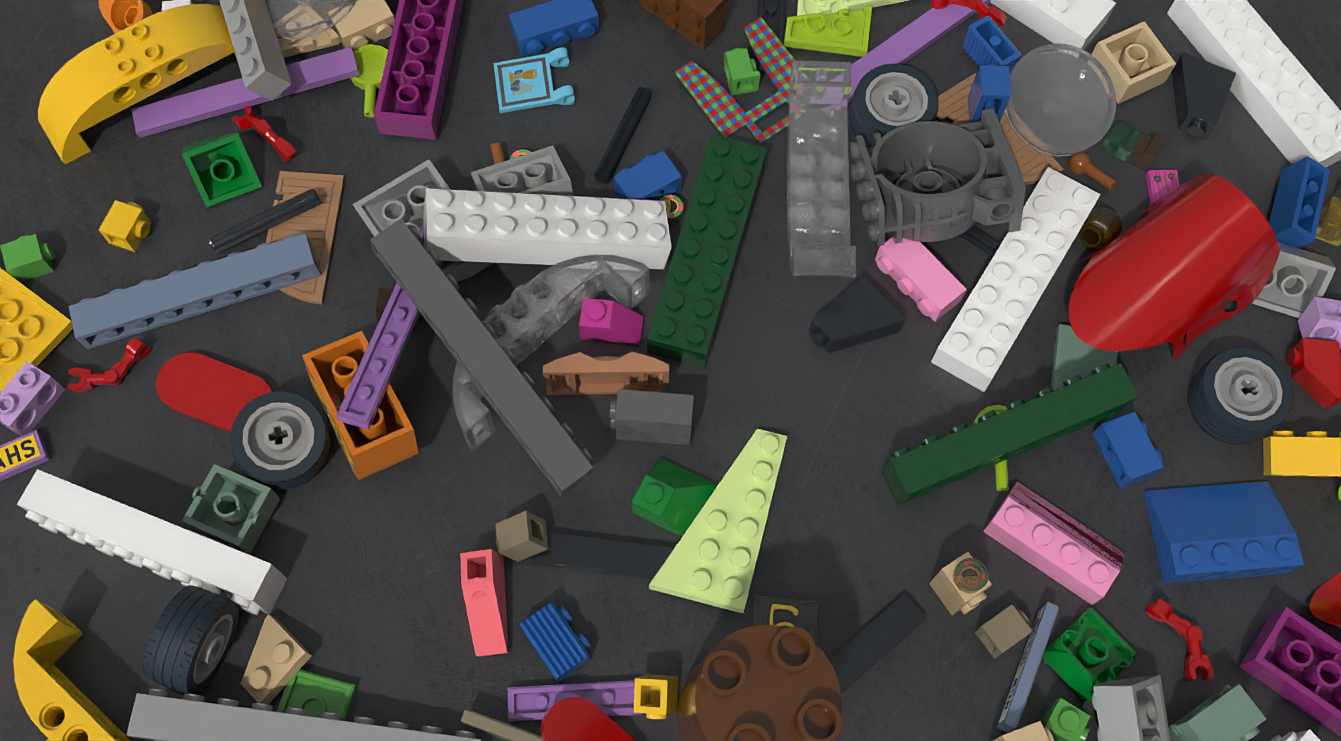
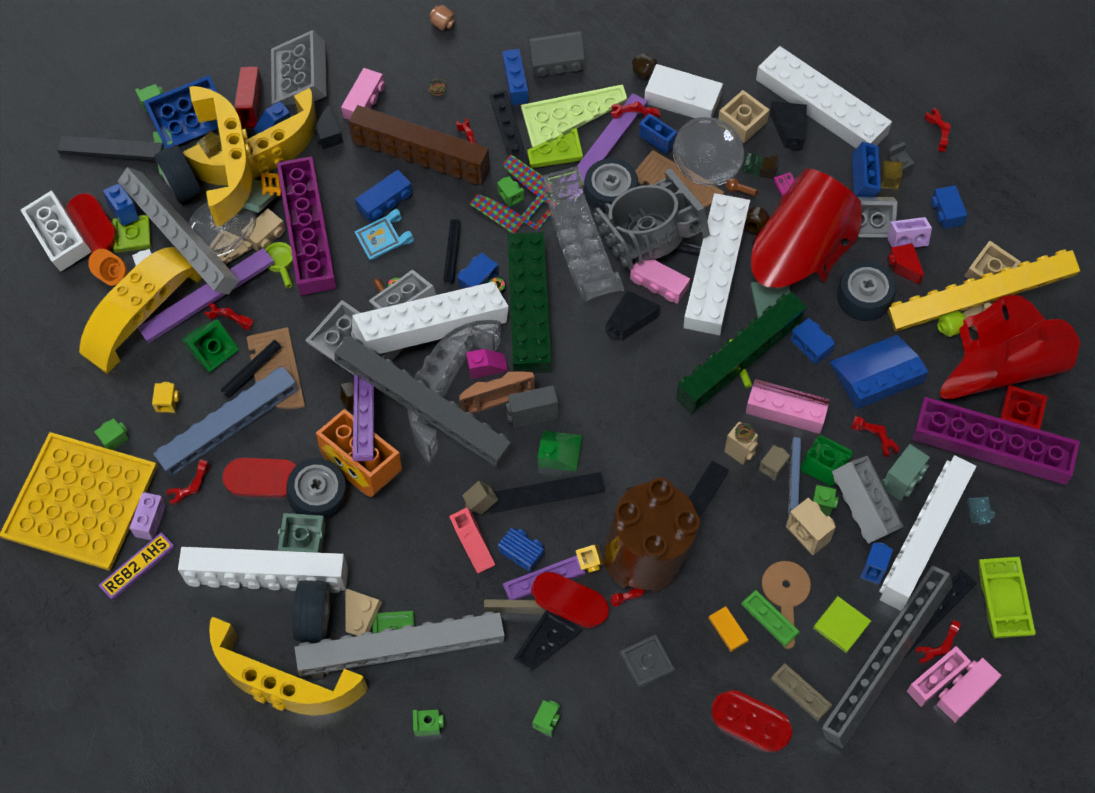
camera: 15 degrees left, 5 degrees down
(723, 542) = (598, 463): yellowish green wing -> none
(989, 90) = (664, 159): blue brick -> none

